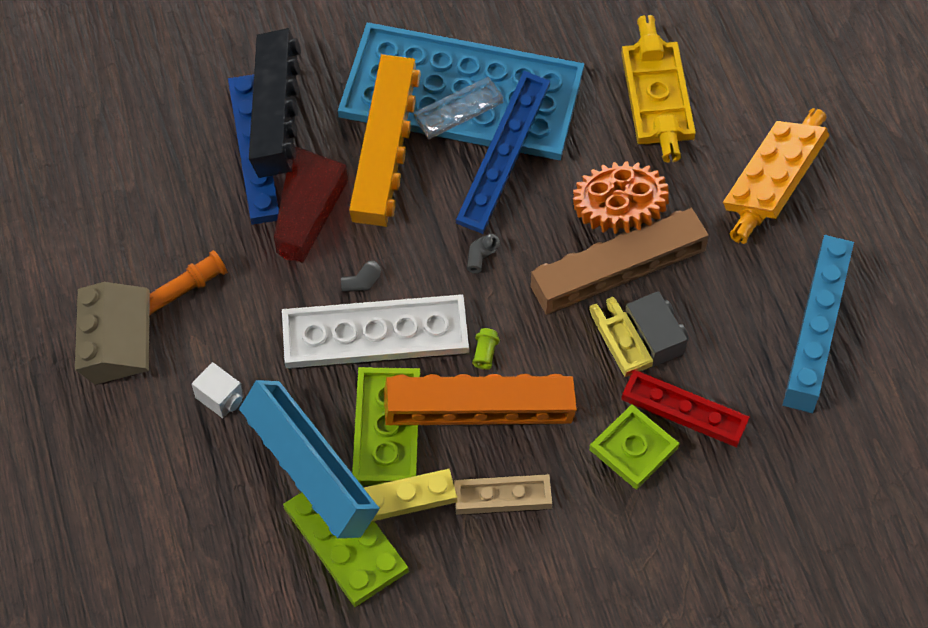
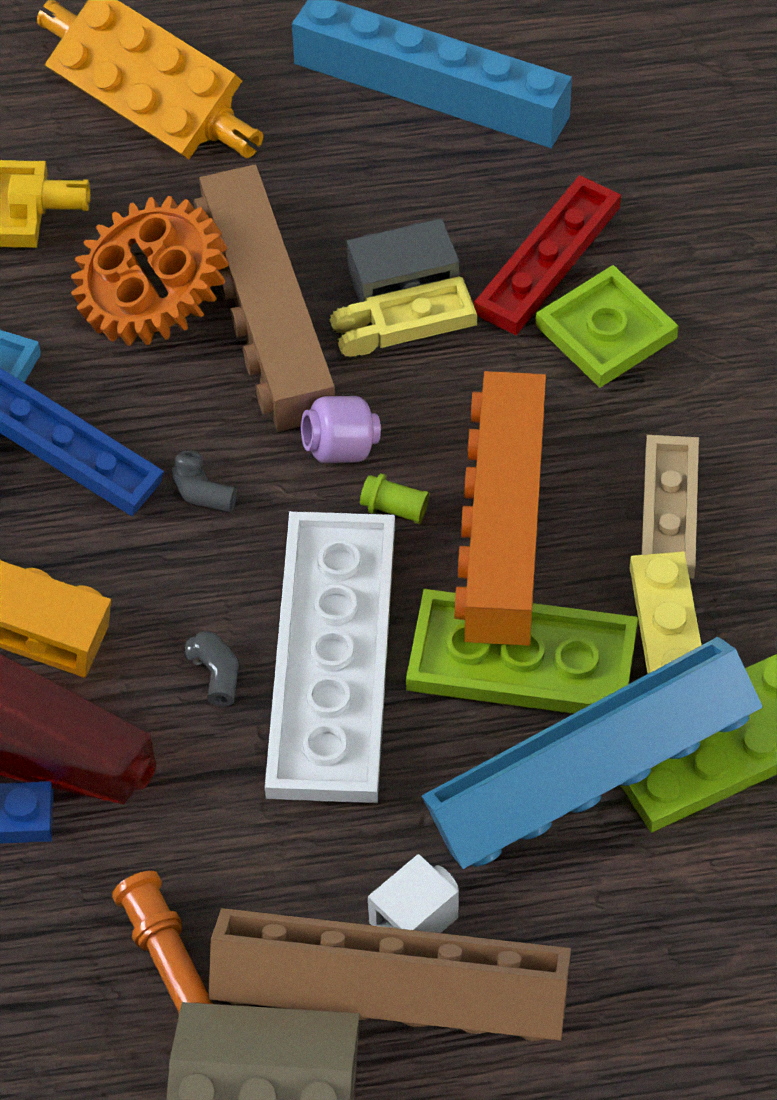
camera: 80 degrees left, 5 degrees down
(170, 382) = (389, 974): none -> medium nougat brick
(526, 312) = (340, 429): none -> lavender head

